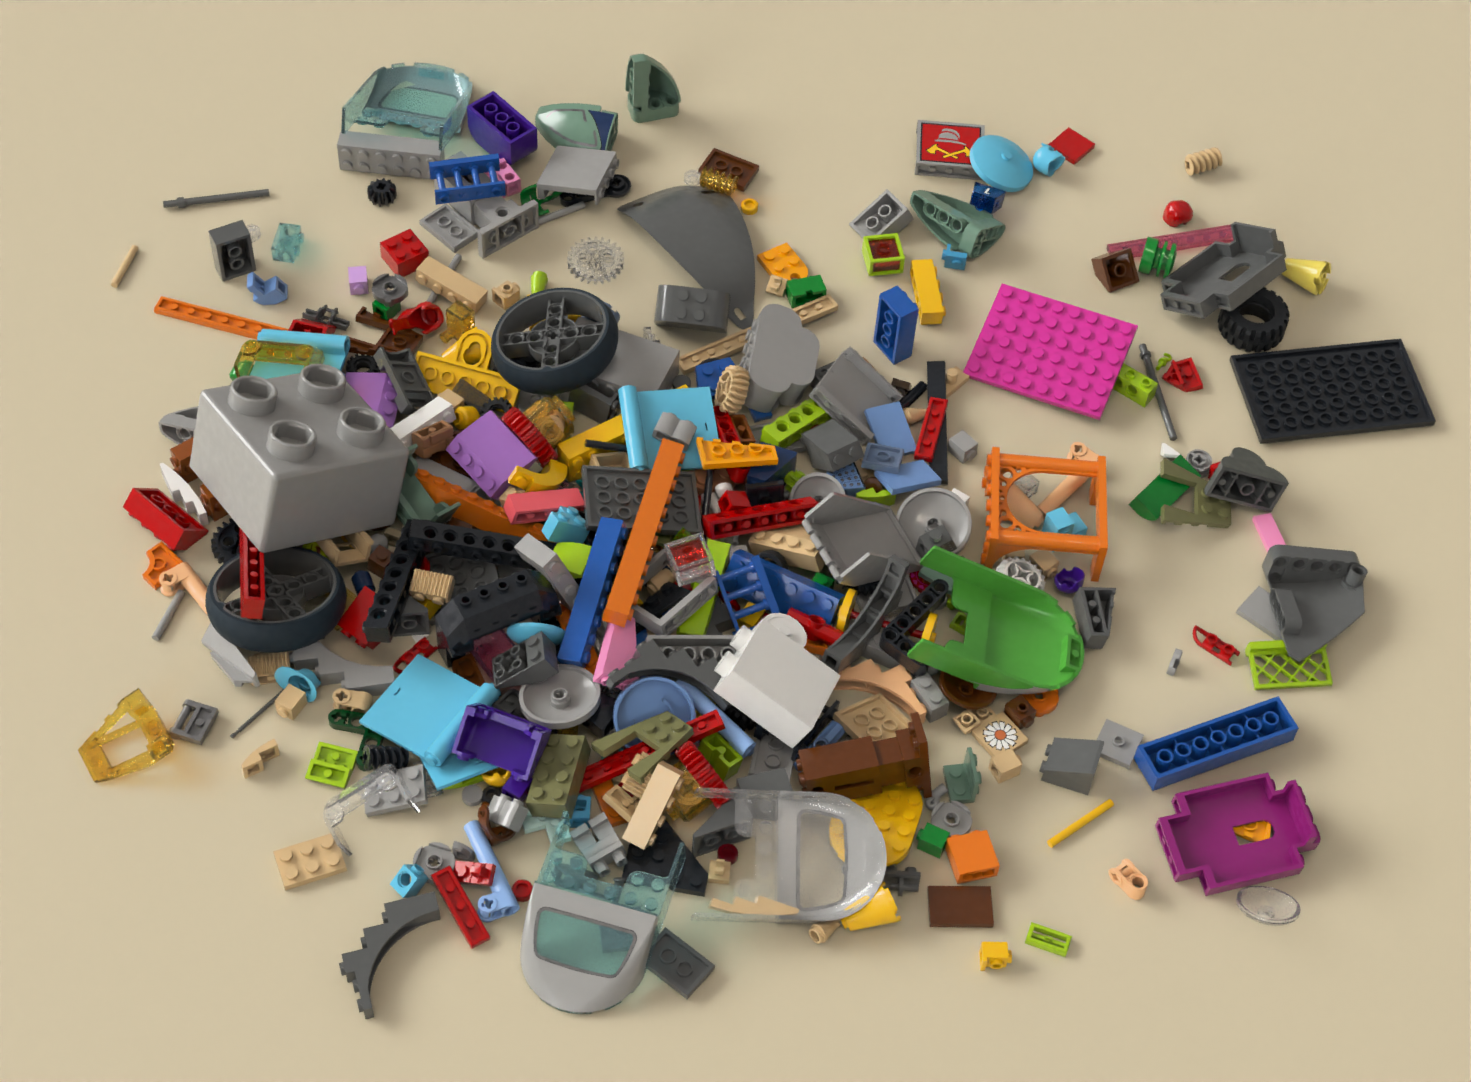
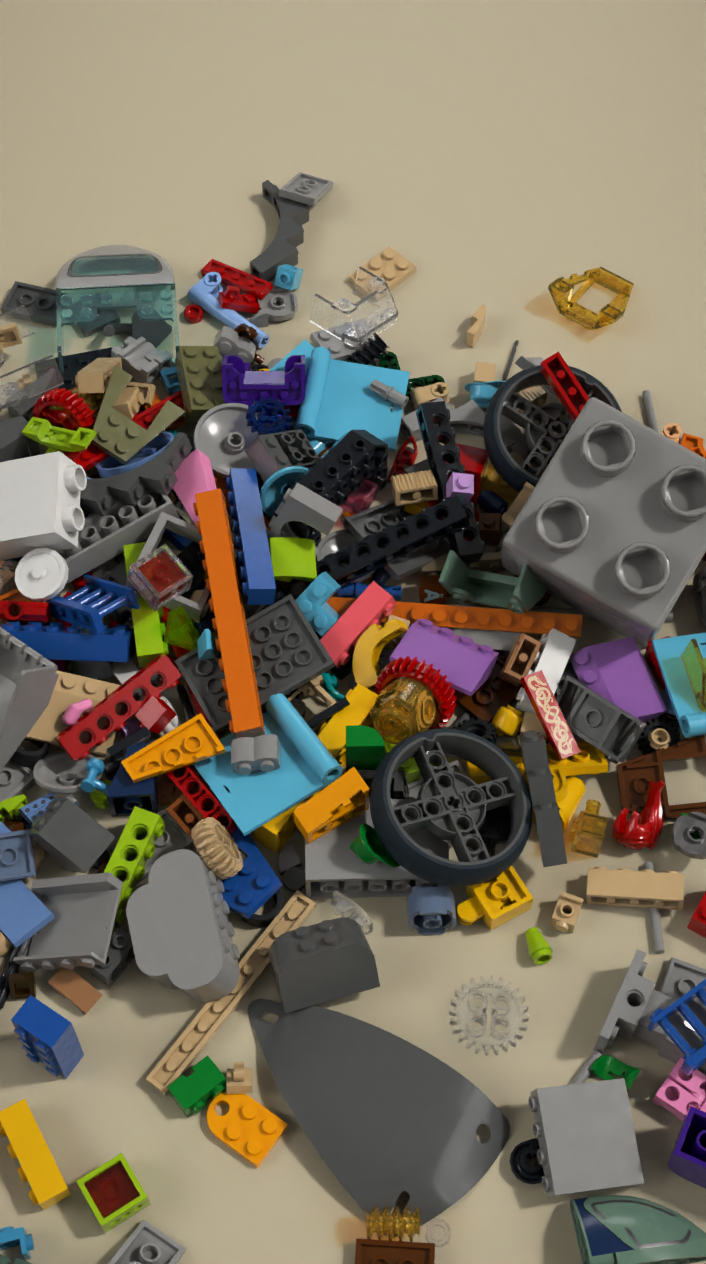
camera: 160 degrees right, 5 degrees up
(198, 724) = (550, 336): flat silver plate -> none
(328, 986) = (306, 189): none -> light grey tile
(332, 765) = (414, 347): lime slope -> none
(366, 356) = (659, 734): none -> tan plate
(393, 698) = (389, 393): none -> light grey axle
(400, 550) = (462, 486): none -> lavender brick
(438, 390) = (550, 715): none -> tile
(477, 343) = (542, 798): none -> dark grey arch
(521, 693) = (268, 416): none -> clear blue gear
(595, 401) = (363, 748): none -> green brick
(627, 338) = (369, 848): none -> green piece
(639, 372) = (332, 806): none -> light orange wedge
(674, 521) = (206, 645): none -> medium azure slope
(715, 748) = (56, 437): none -> lime slope
(749, 206) = (336, 1216): yellow tile -> none
(793, 522) = (75, 710): none -> bright pink arm
(797, 484) = (94, 768): none -> dark azure piece

